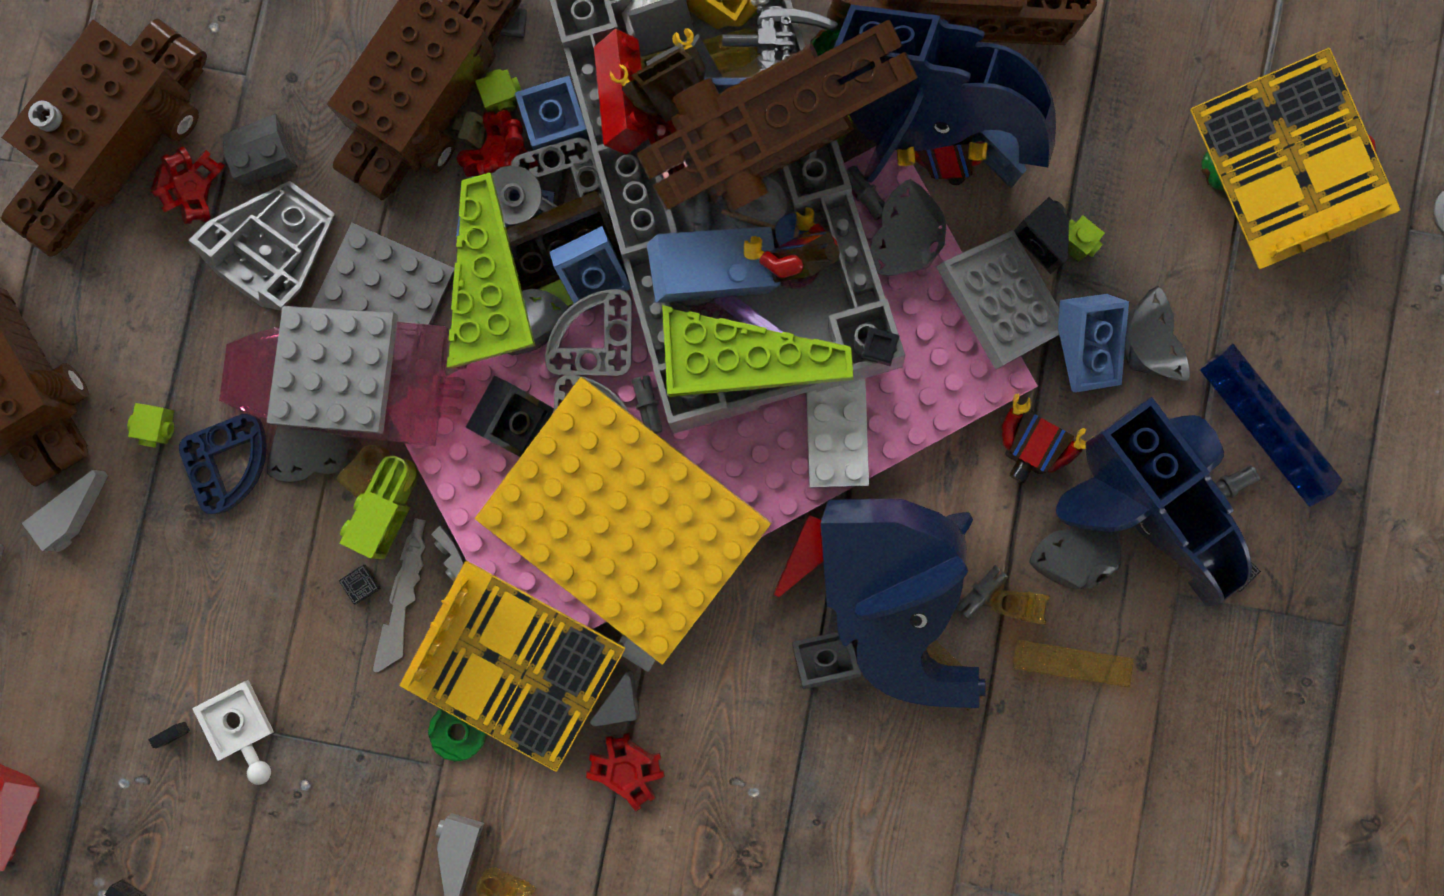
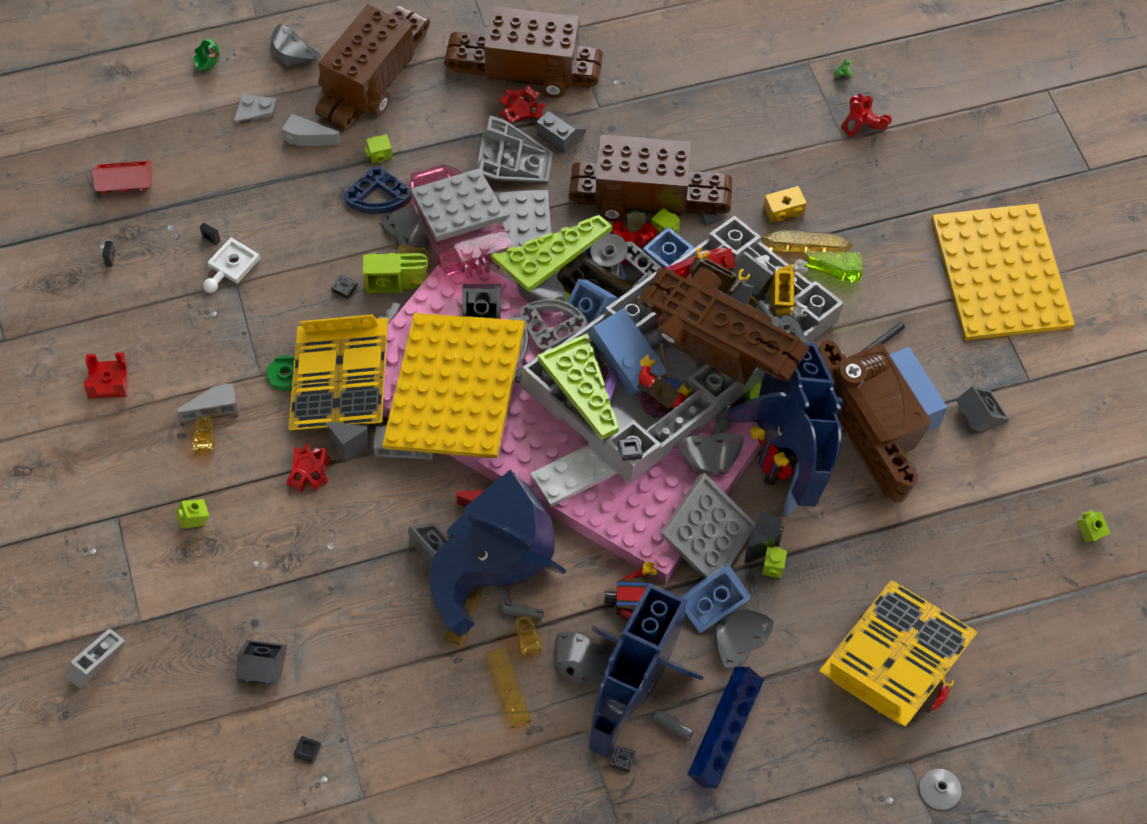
camera: 60 degrees right, 25 degrees down
(53, 120) = (515, 21): light grey bush -> none
(392, 635) = (352, 309): light grey sword -> none

